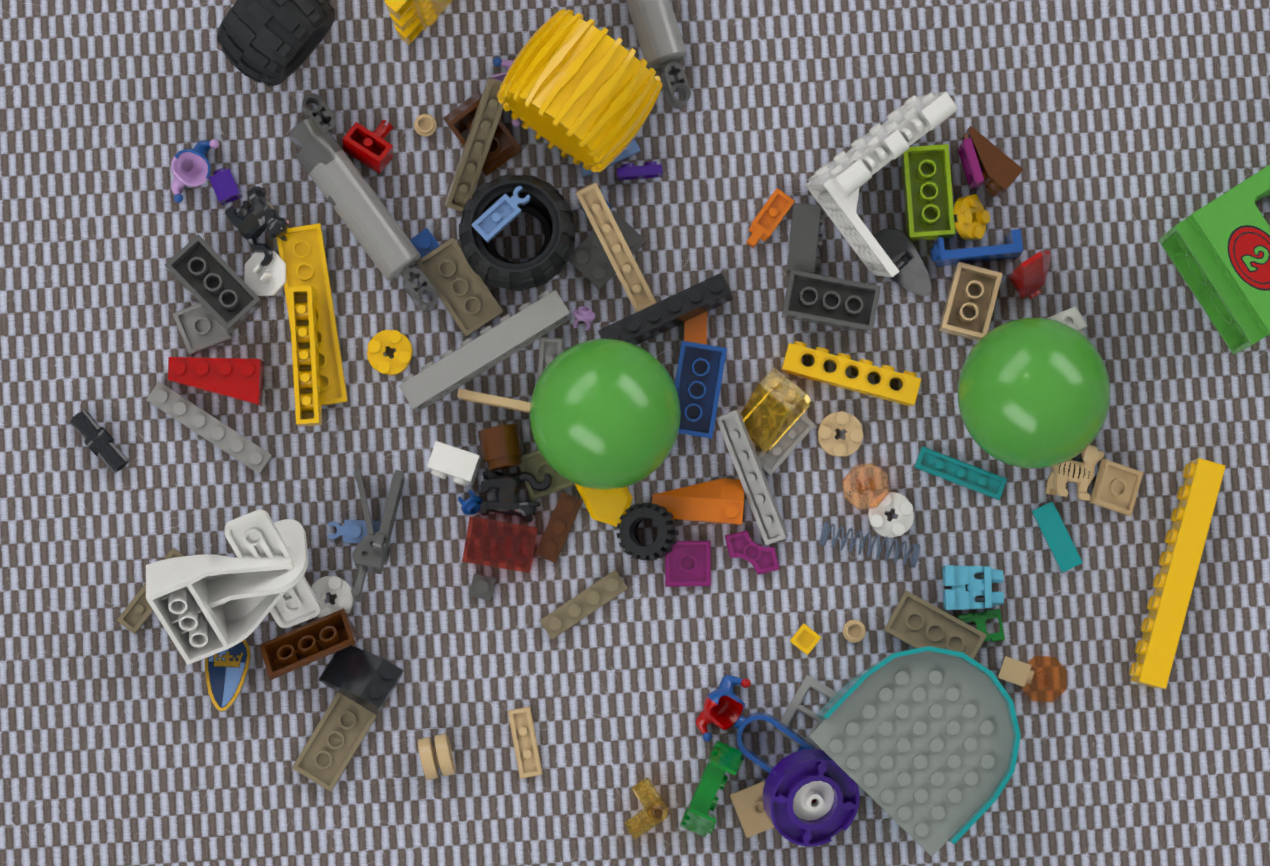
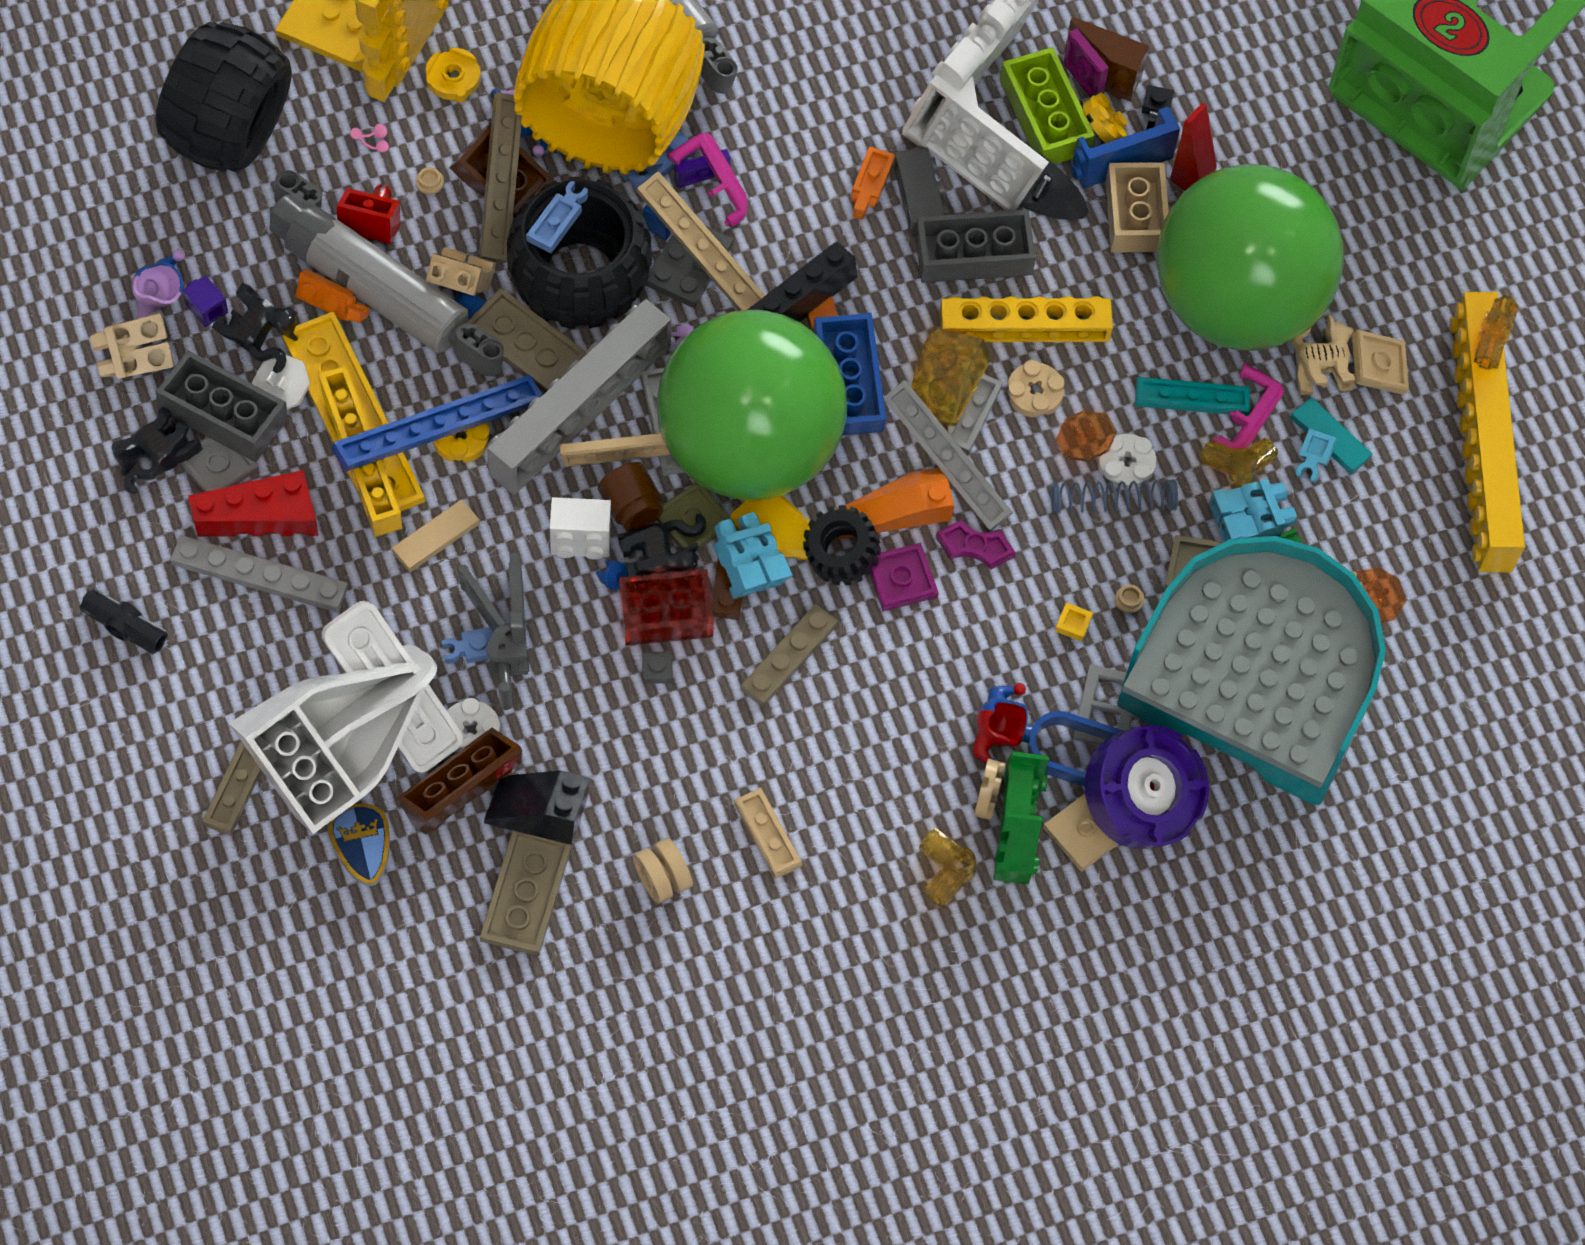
camera: 25 degrees left, 20 degrees down
(159, 308) = (157, 446): none -> black animal
(160, 216) = (125, 349): none -> tan hips
(321, 211) = (330, 297): none -> orange hinge
(348, 432) = (435, 535): none -> tan tile
(368, 351) = (435, 423): none -> blue plate
(399, 70) = (380, 132): none -> bright pink piece
(421, 223) = (454, 272): none -> tan hips
(471, 46) = (453, 88): none -> yellow plate
(577, 514) = (750, 556): none -> medium azure hips
(652, 182) = (721, 170): none -> dark pink piece
(695, 761) = (989, 789): none -> tan plate
(970, 543) = (1241, 462): none -> clear yellow piece
(1006, 504) = (1253, 423): none -> dark pink piece
(1019, 208) = (1156, 99): none -> black plate
(1039, 550) = (1316, 450): none -> medium azure plate
(1208, 504) = (1495, 332): none -> clear yellow piece

